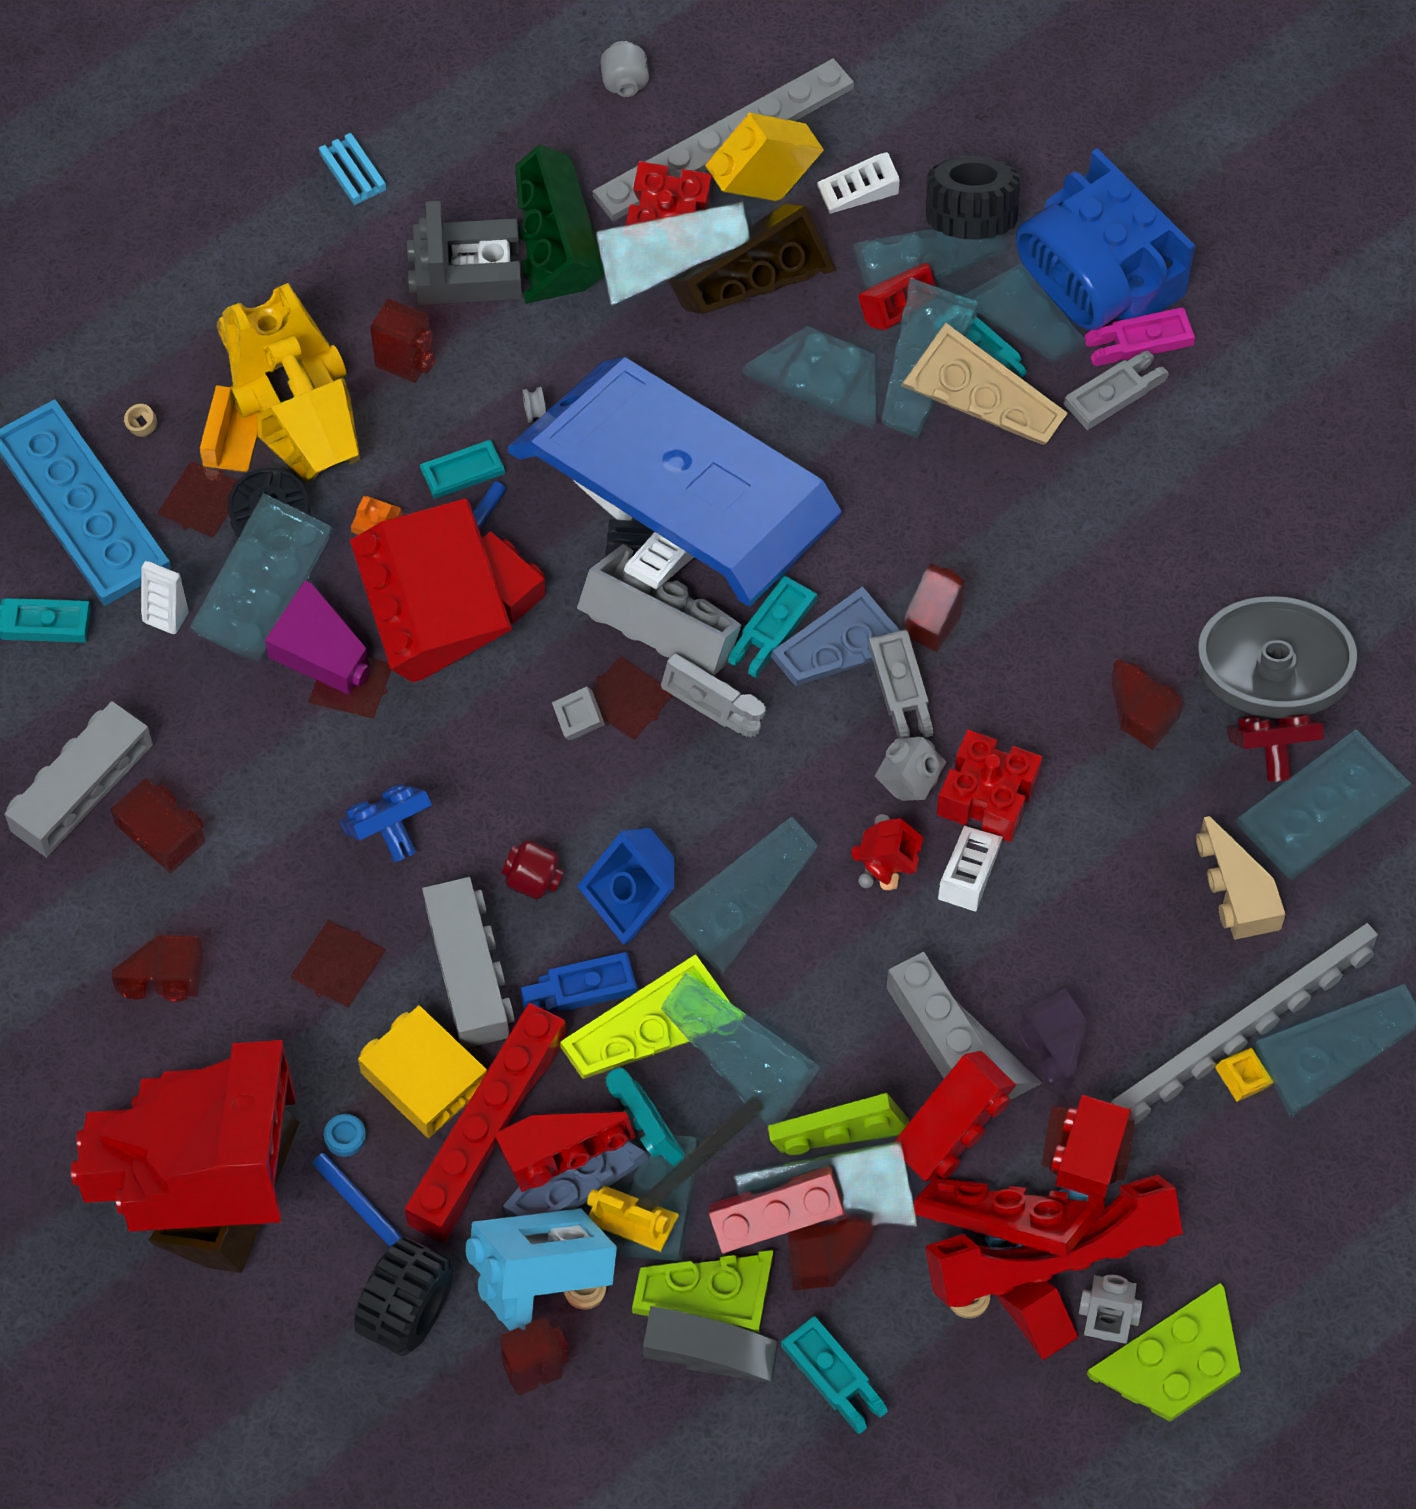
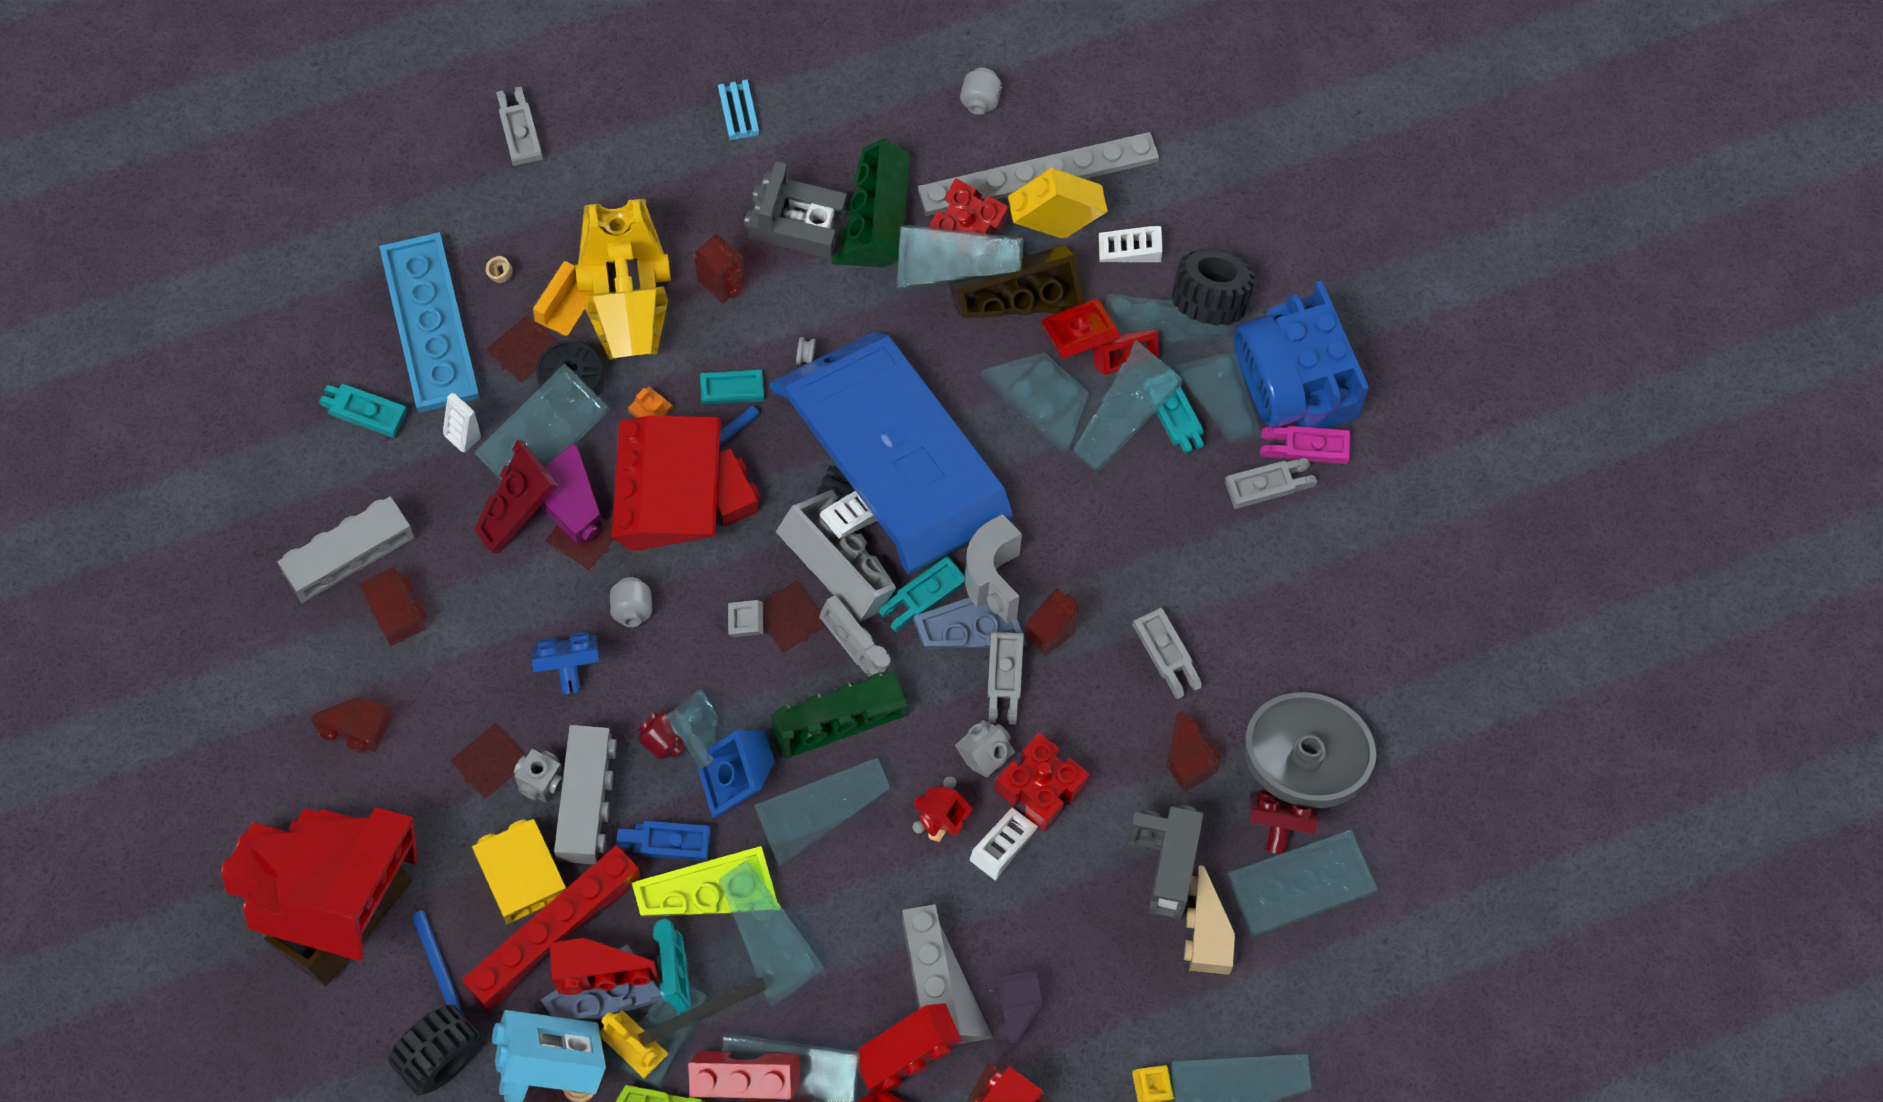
camera: 15 degrees right, 5 degrees up
(104, 261) = (519, 129): none -> light grey hinge
(262, 658) = (520, 493): none -> dark red wing
(344, 1135) = (444, 901): dark azure tile -> none
(405, 957) = (541, 784): none -> light grey brick
(437, 734) = (630, 602): none -> light grey head
(568, 841) = (695, 724): none -> clear light blue wing
(727, 784) = (838, 714): none -> dark green wedge
(831, 551) = (987, 550): none -> light grey arch
(839, 287) = (1080, 328): none -> red tile
(847, 1123) = (819, 1023): lime wing -> none
(977, 384) = (1157, 446): tan wing -> none
(1073, 603) = (1166, 650): none -> light grey hinge
(1172, 804) = (1177, 842): none -> dark grey brick
(1259, 1016) = (1154, 1050): light grey plate -> none

